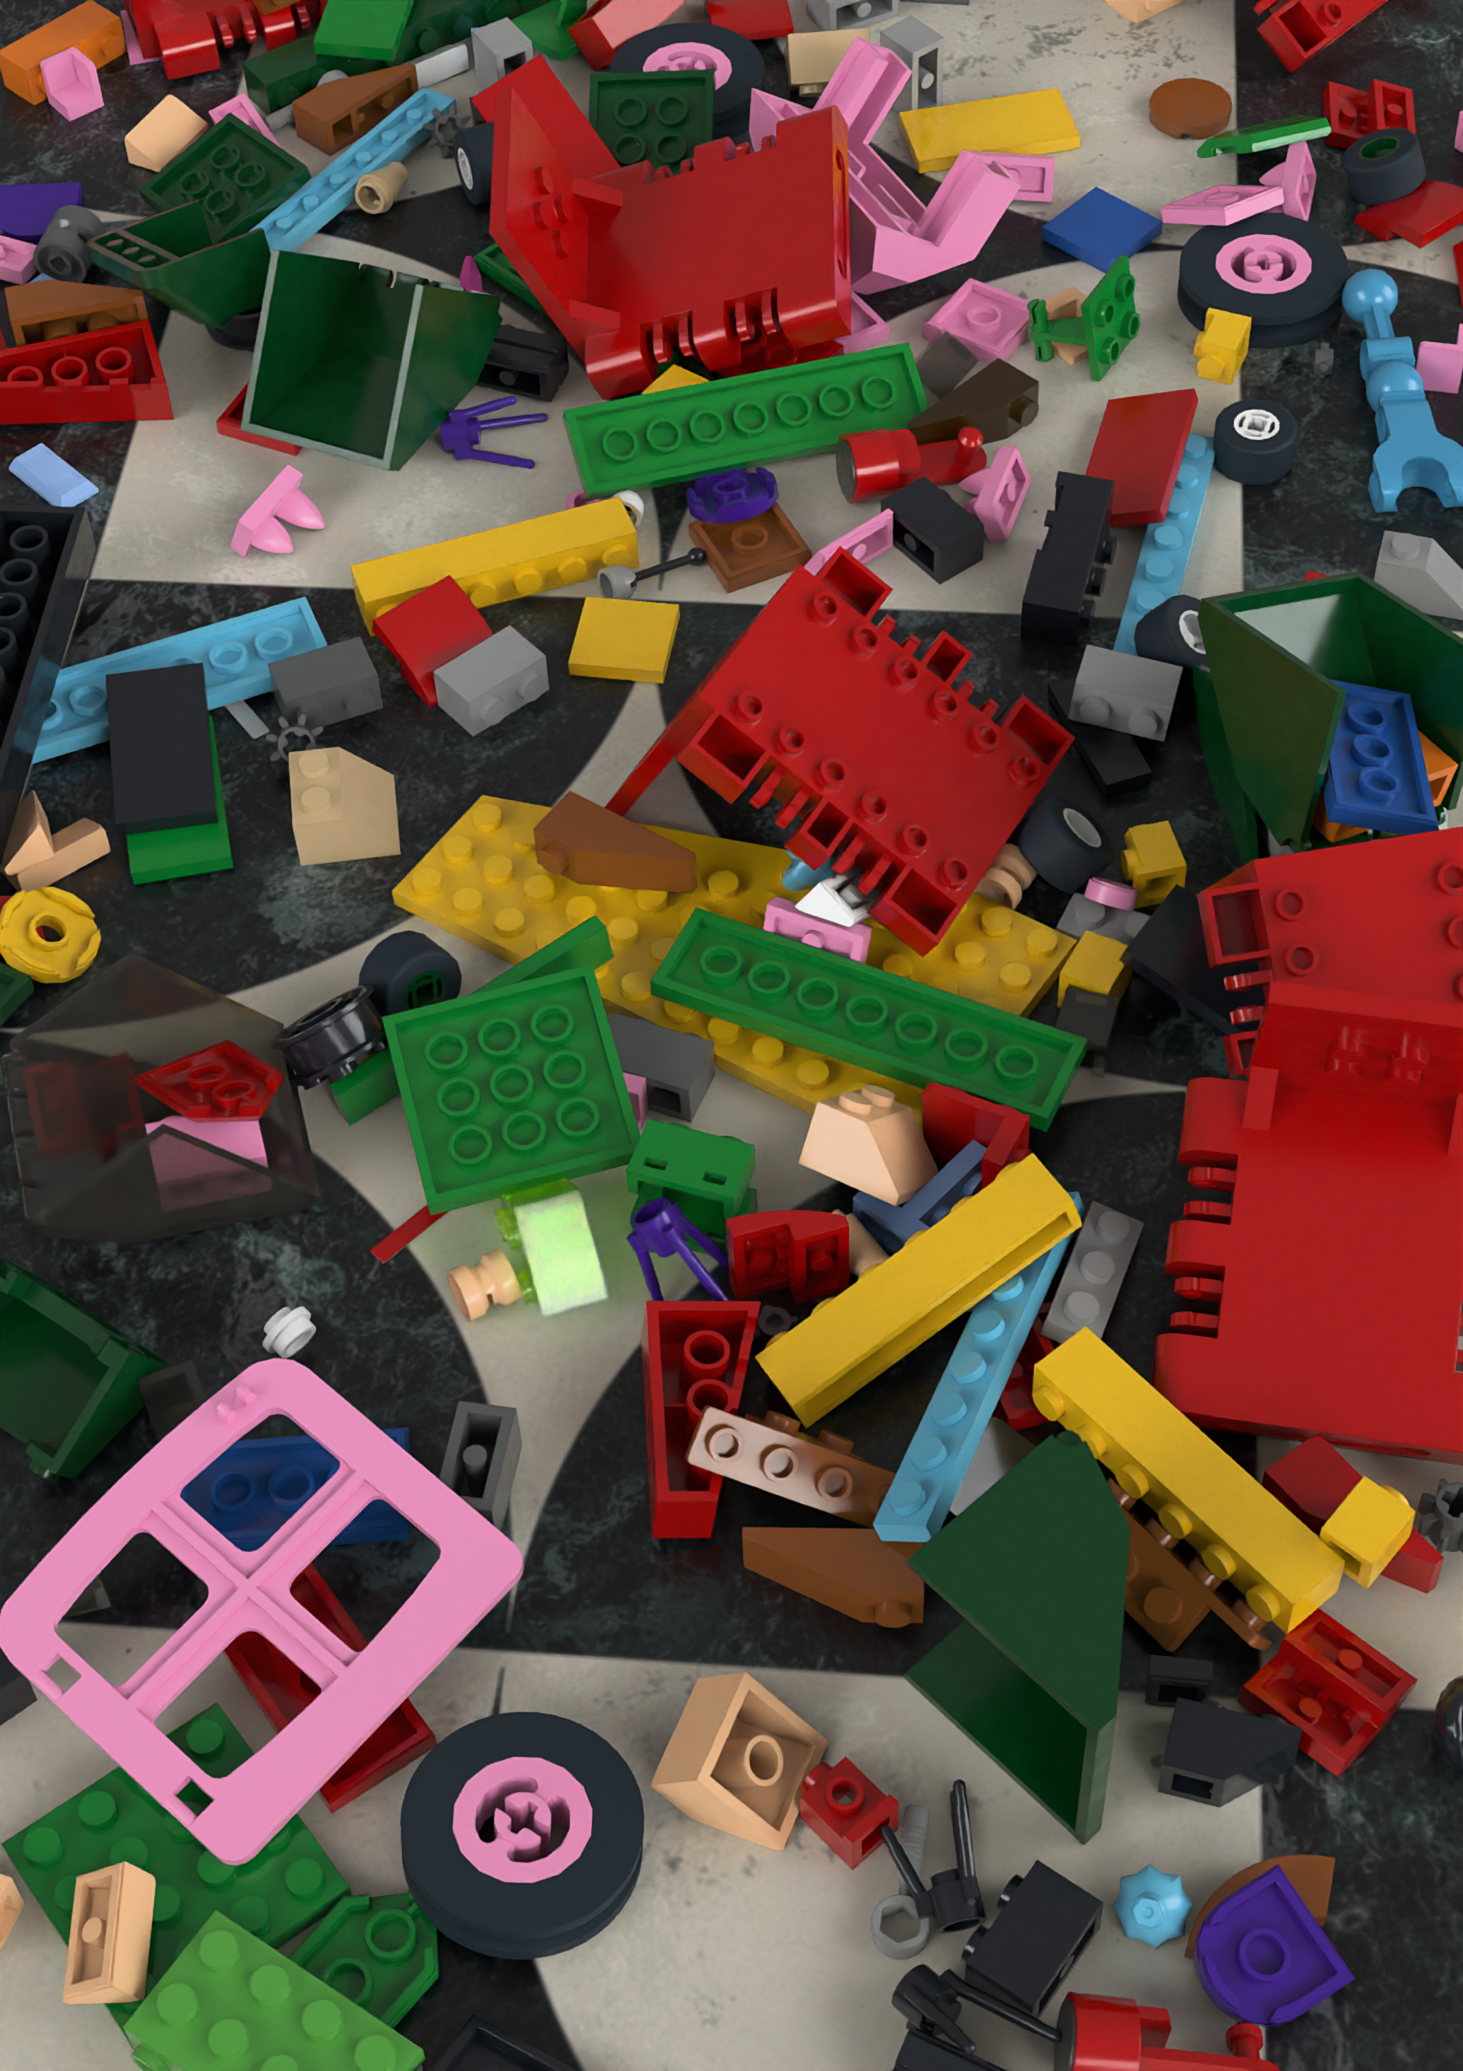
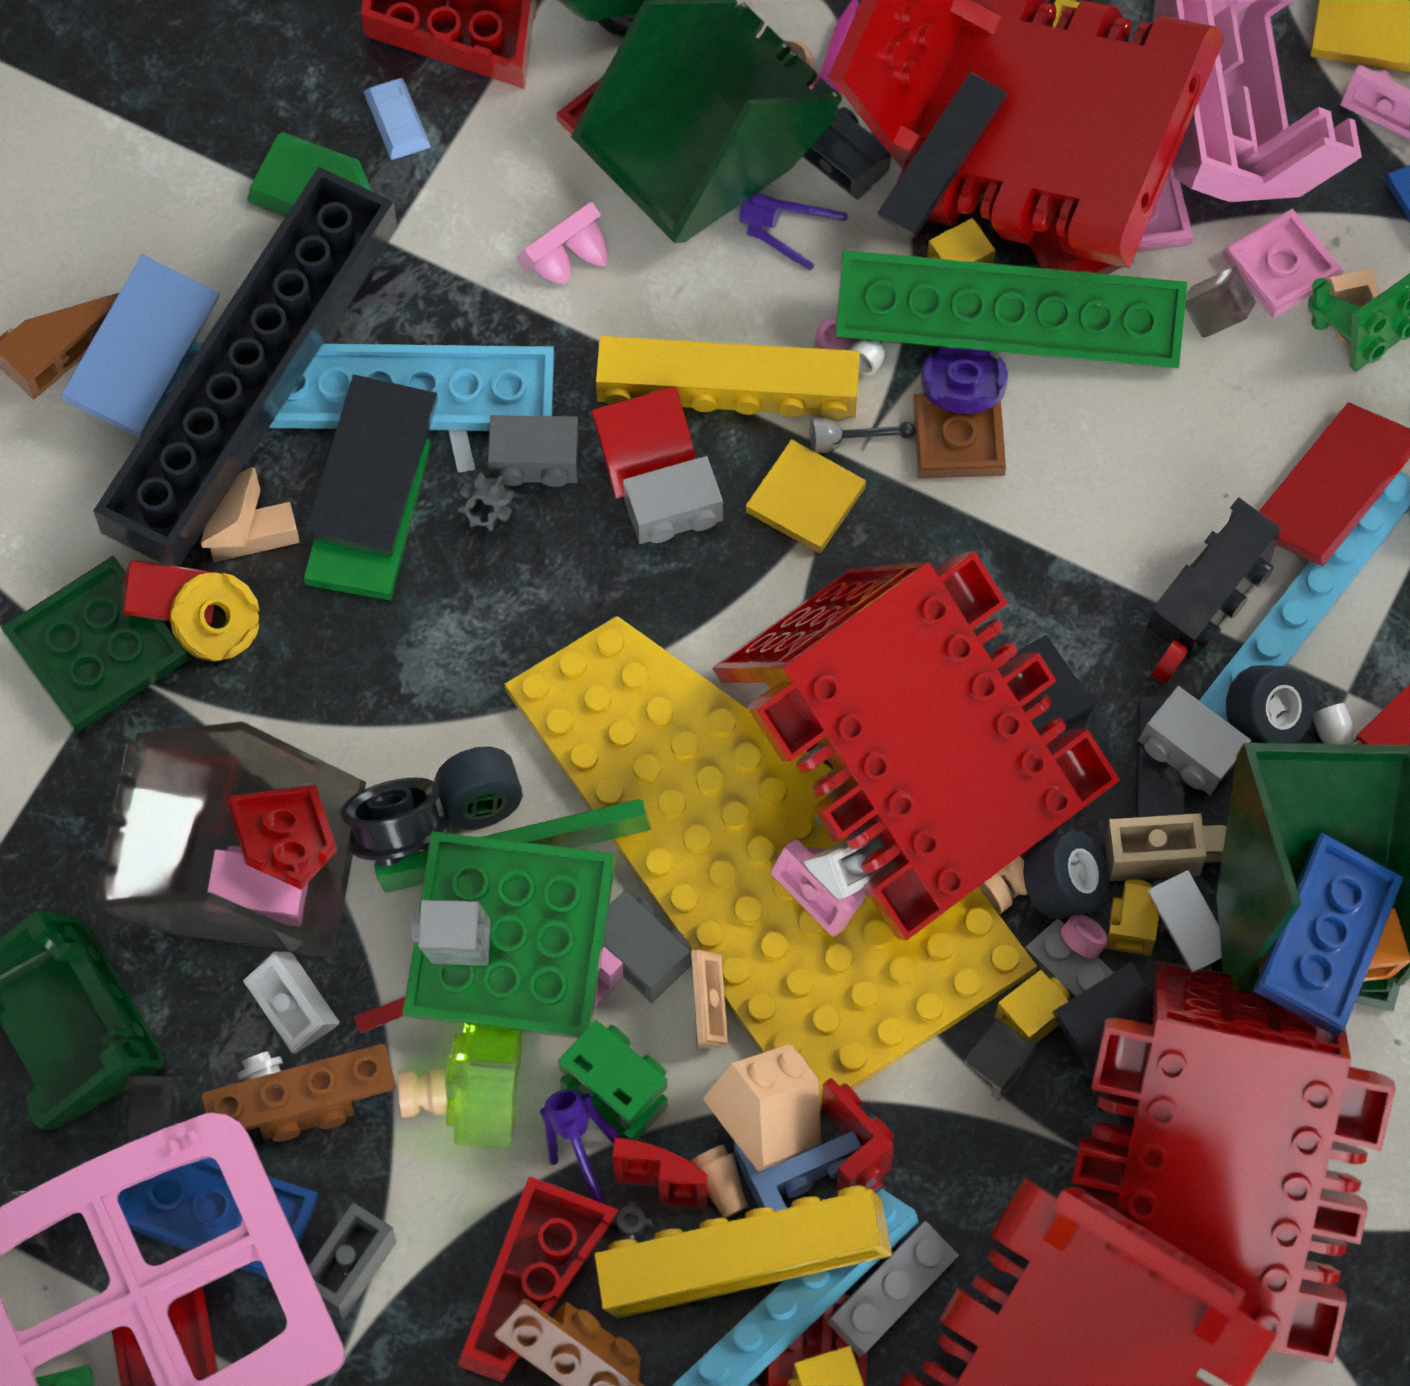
camera: 20 degrees right, 15 degrees up
(290, 1260) = (290, 1000): none -> white slope
(341, 807) = (498, 582): tan slope -> none
(361, 1324) = (305, 1094): none -> dark orange bracket
(452, 1085) = (452, 932): none -> light grey brick
(609, 850) = (684, 726): dark orange slope -> none
(621, 312) = (942, 154): none -> black tile
(751, 1086) = (709, 999): none -> light nougat slope
(862, 543) = (1040, 481): bright pink slope -> none
(867, 1016) = (825, 981): green plate -> none
(884, 461) = (1104, 401): red piece -> none
(934, 530) = (1120, 488): black brick -> none
(993, 400) = (1222, 372): dark brown slope -> none
(1000, 493) = (1203, 467): bright pink tile -> none
(1061, 648) = (1169, 662): none -> red tile
(1147, 787) = (1161, 846): none -> tan brick
(1209, 832) = (1188, 920): none -> white slope

